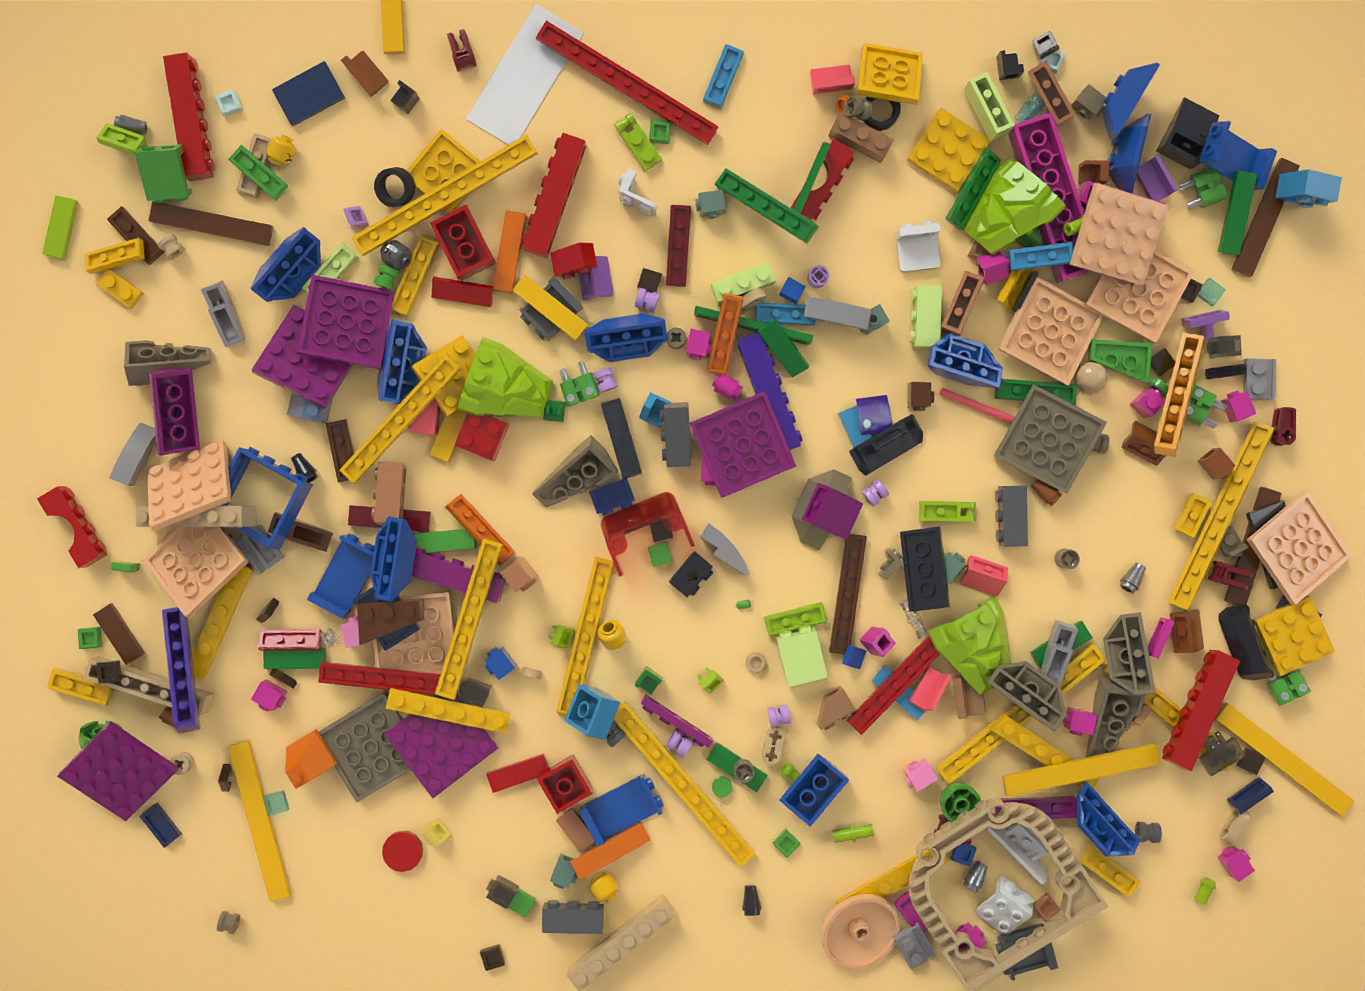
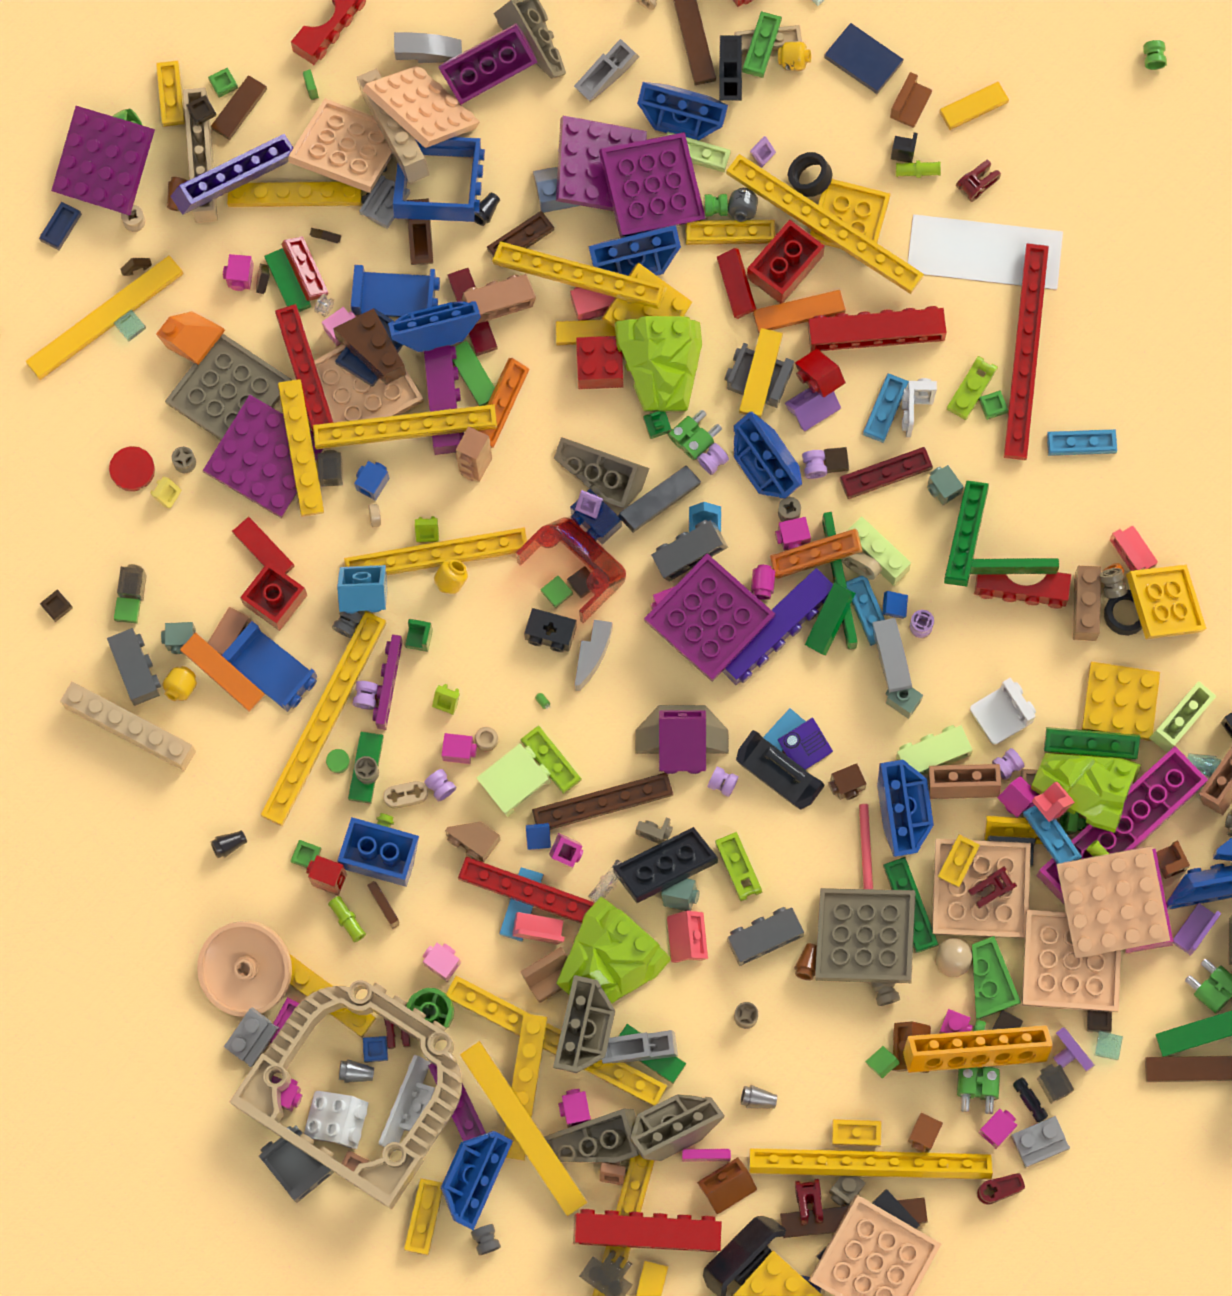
camera: 70 degrees right, 15 degrees down
(270, 210) = (730, 68): none -> black arch
(410, 808) = (180, 455): none -> dark tan wheel
(429, 95) = (918, 169): none -> lime pin
(603, 498) = (588, 504): none -> lavender slope
(623, 220) = (885, 408): none -> dark azure tile
(756, 689) = (458, 748): none -> dark pink brick
(815, 838) = (326, 875): none -> red brick
(855, 800) = (383, 904): none -> reddish brown tile
(961, 262) = (1009, 763): none -> lavender wheel
(1018, 243) = (1053, 802): none -> coral panel
(1028, 339) = (958, 860): none -> yellow plate
(1065, 321) = (994, 880): none -> dark red piece
(1148, 470) = (882, 1062): none -> bright green tile

